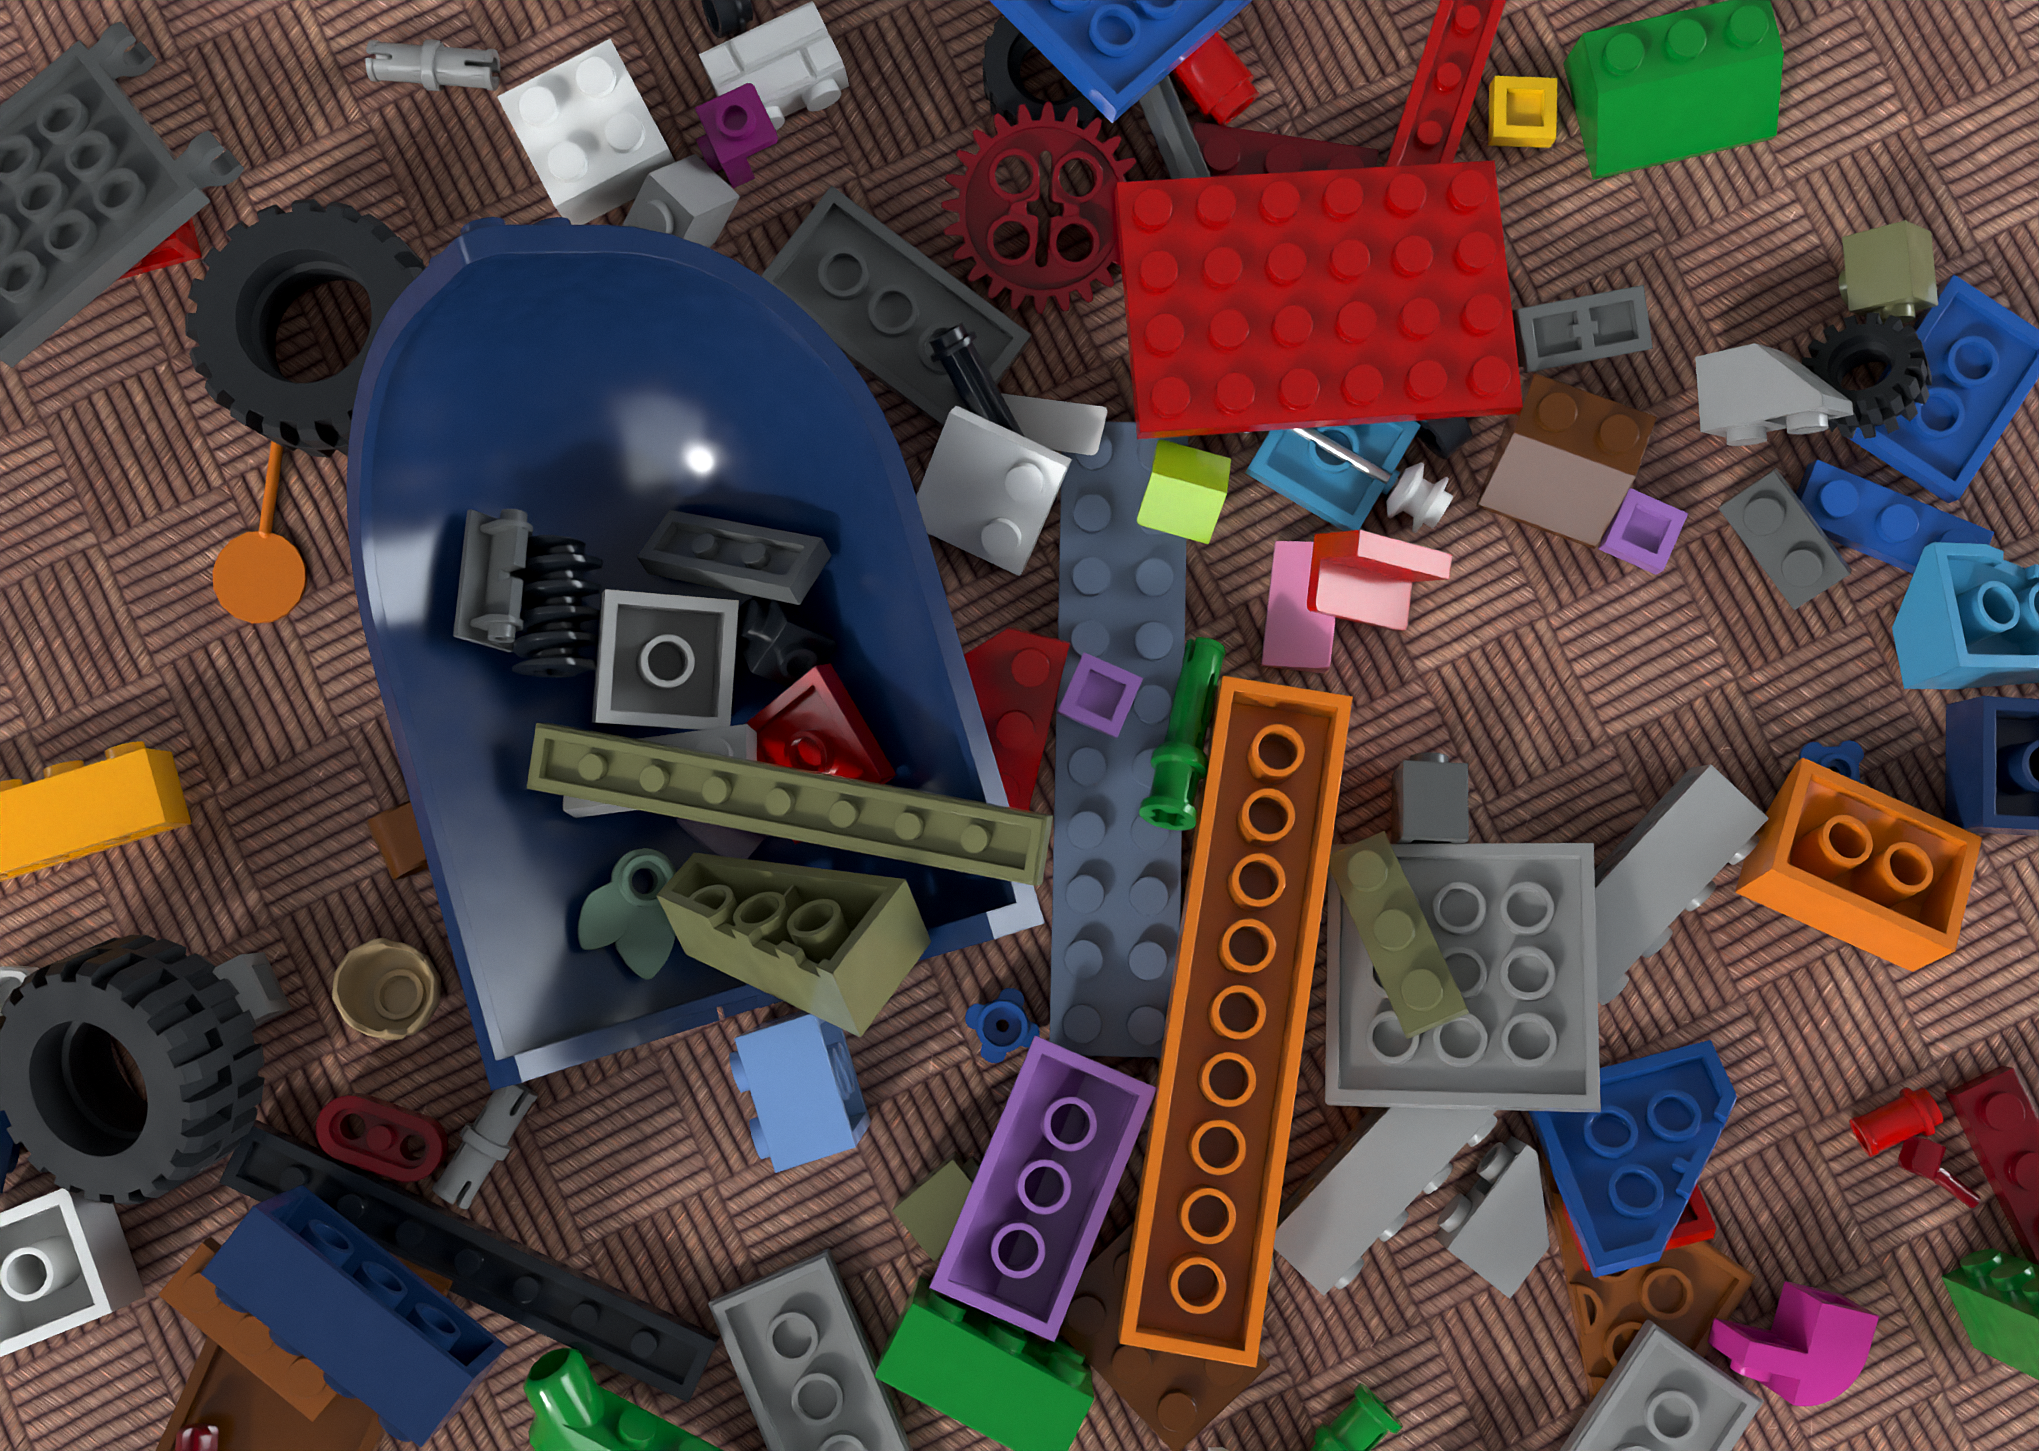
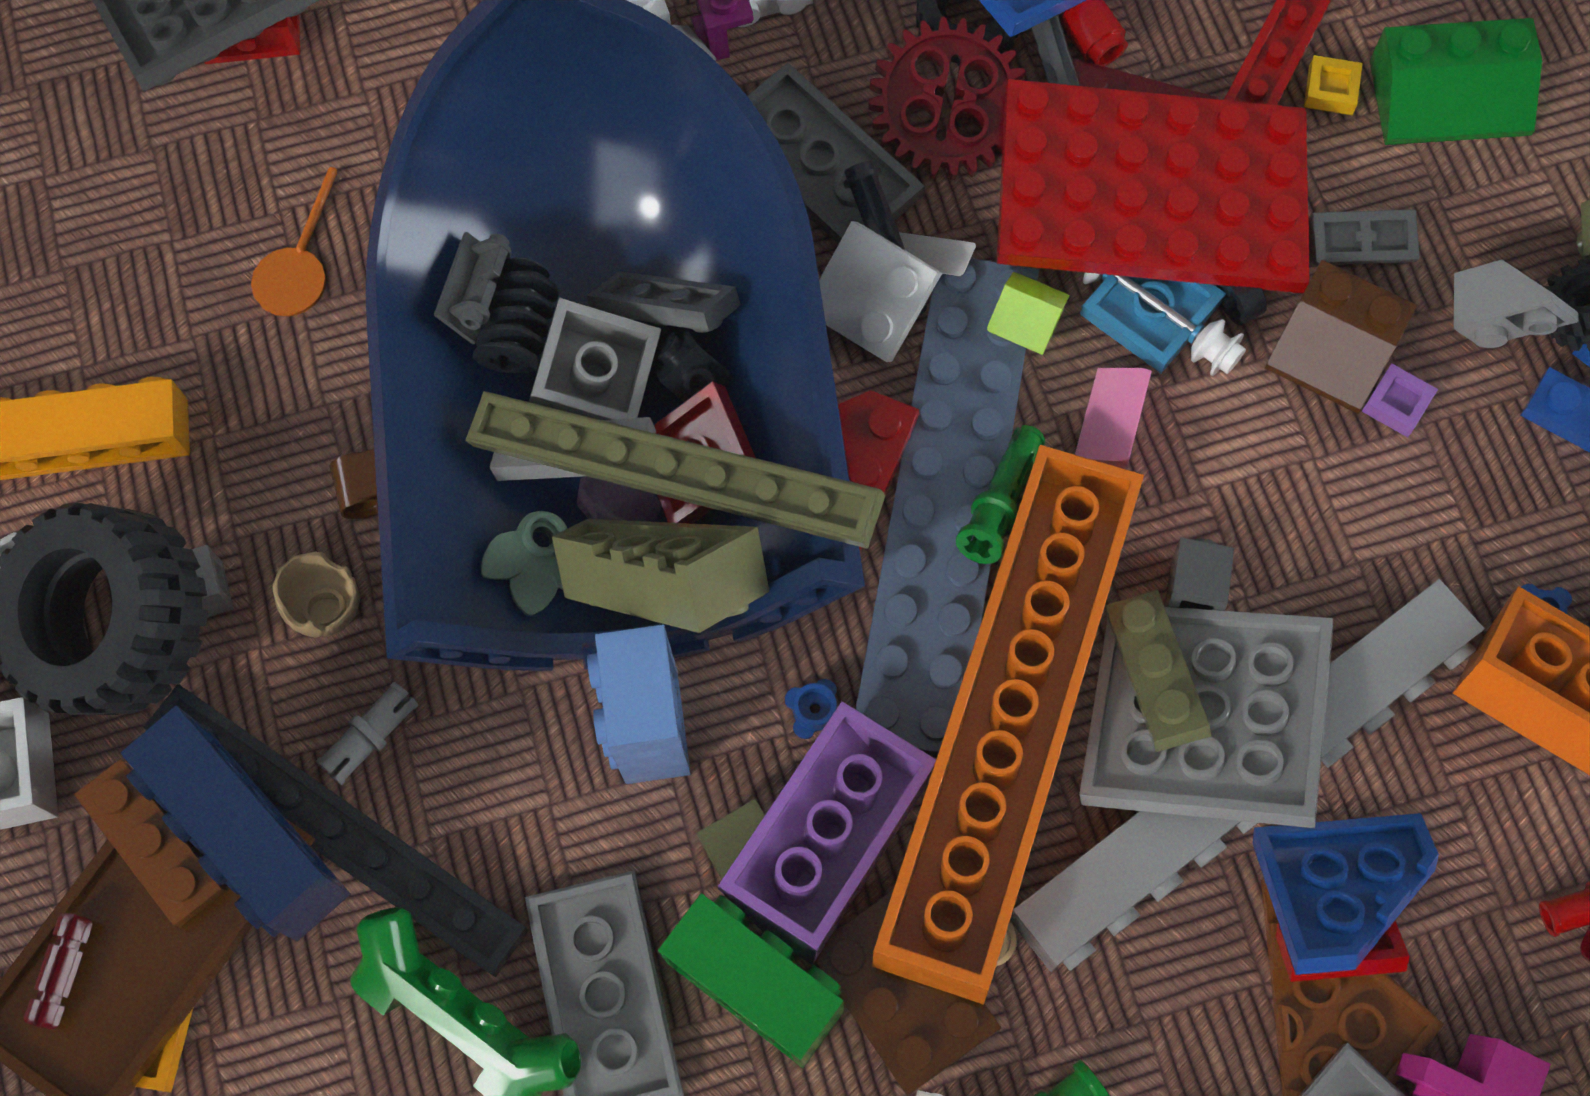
camera: 10 degrees right, 15 degrees down
(249, 293) = (336, 69): black tyre -> none
(385, 1138) = (287, 716): dark red plate -> none
(1100, 695) = (937, 450): medium lavender plate -> none
(1370, 577) = (1172, 394): panel -> none
(1502, 1218) = (1222, 937): light grey slope -> none
(1785, 539) = (1517, 422): dark grey plate -> none

